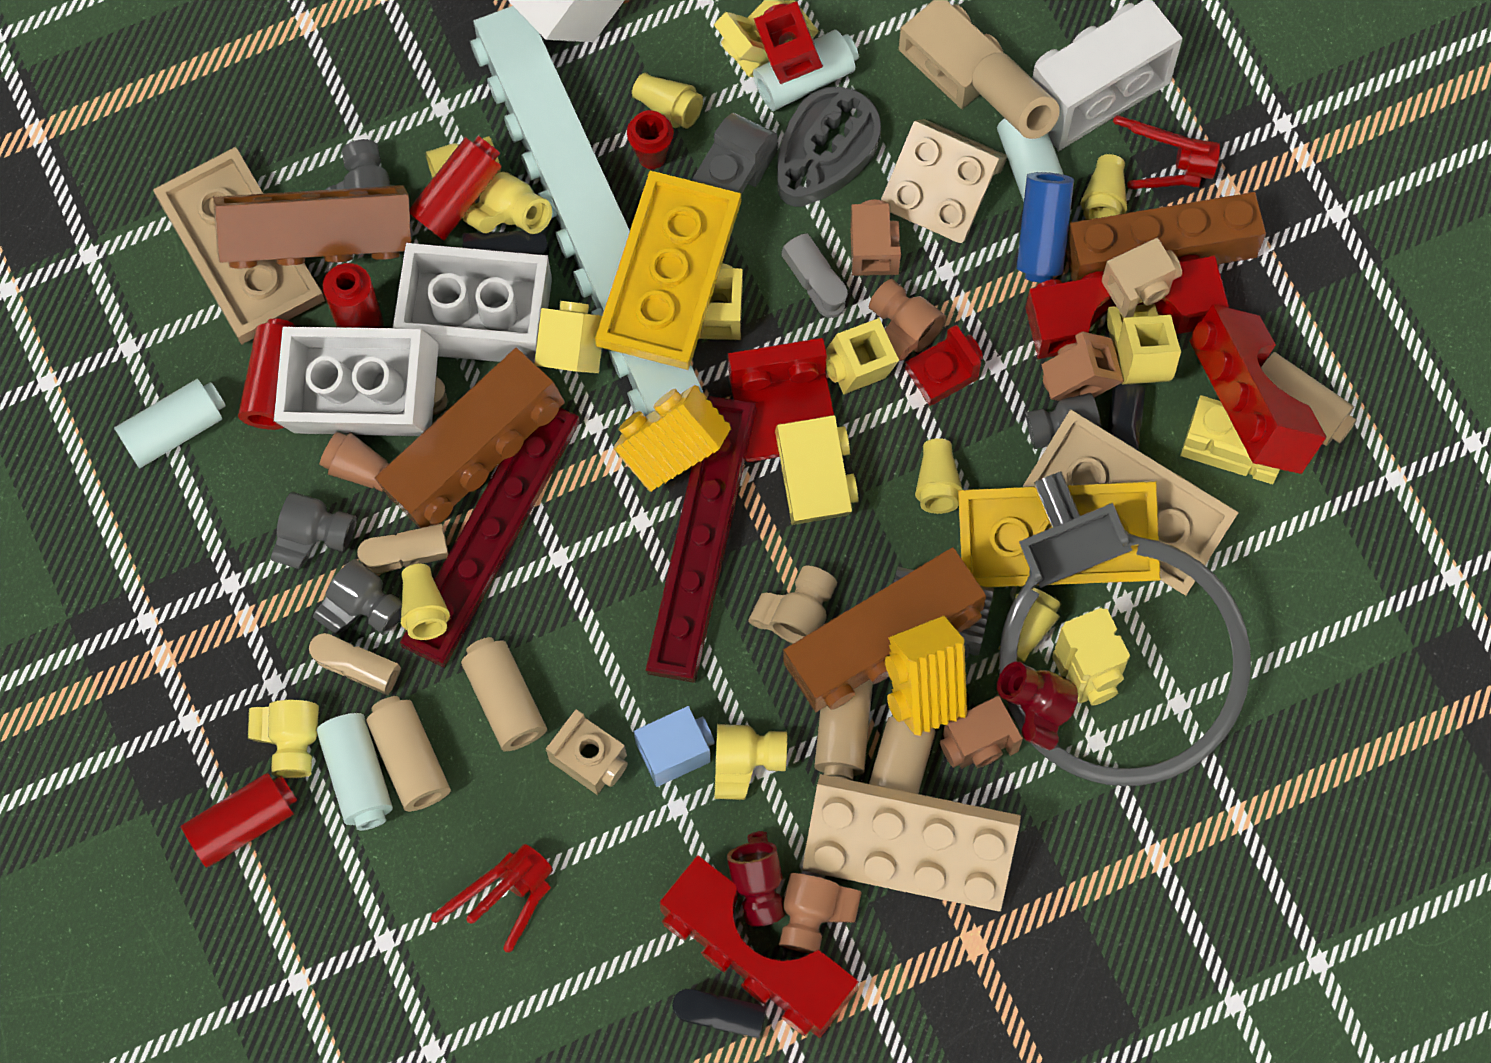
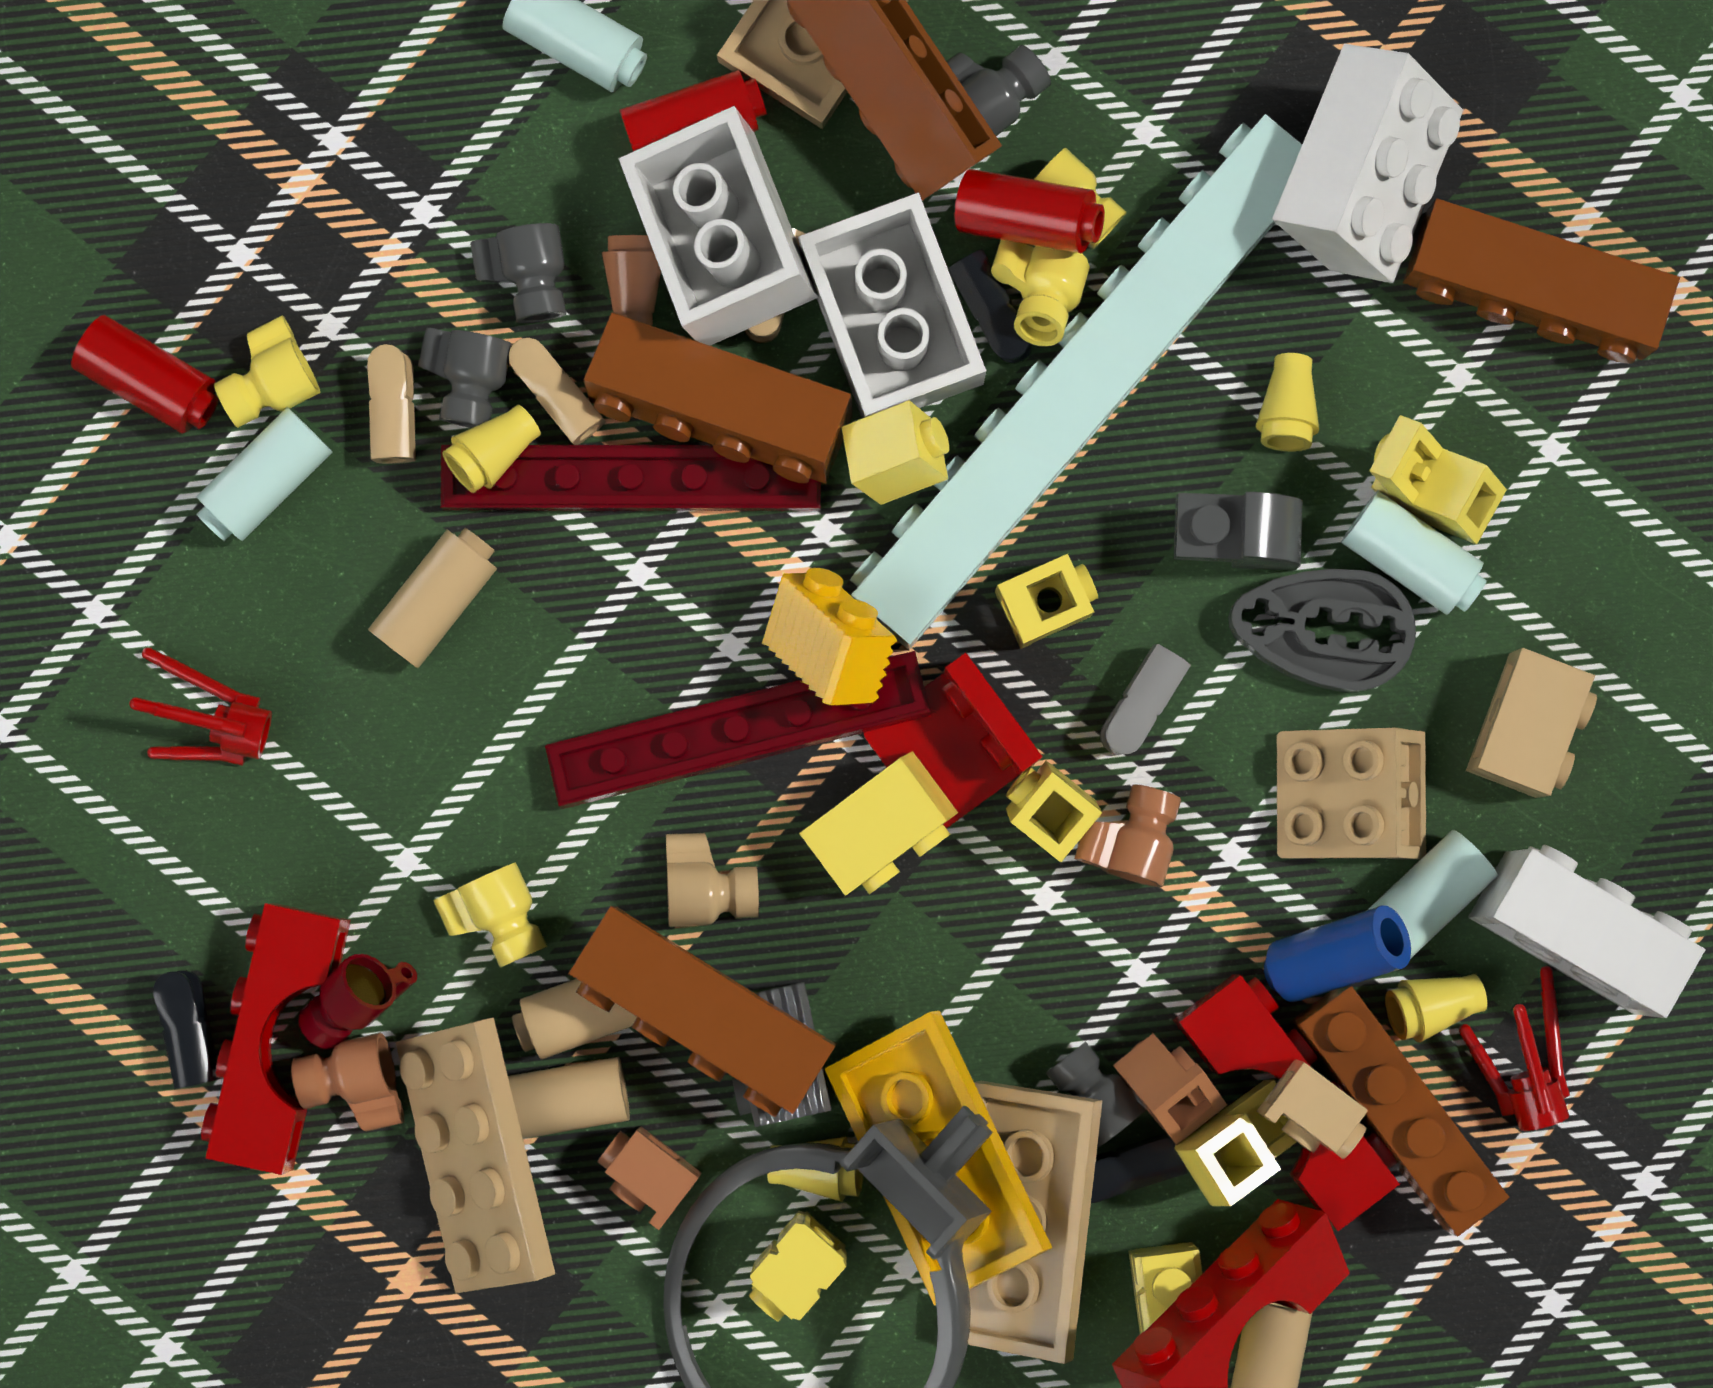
camera: 65 degrees right, 15 degrees up
(352, 297) = (816, 169): red brick -> none
(407, 753) = (311, 523): tan brick -> none
(591, 772) = (430, 714): tan brick -> none
(650, 138) = (1226, 399): red cone -> none
(668, 270) = (1040, 526): yellow plate -> none
(674, 745) = (466, 825): light blue brick -> none
(794, 57) = (1420, 493): red brick -> none
(874, 239) = (1225, 748): nougat brick -> none
(927, 676) = (663, 1088): yellow brick -> none
(938, 478) = (949, 975): light yellow cone -> none
(946, 366) = (1101, 915): red bracket -> none
(1015, 95) = (1489, 839): tan brick -> none
(1043, 697) = (722, 1230): dark red piece -> none

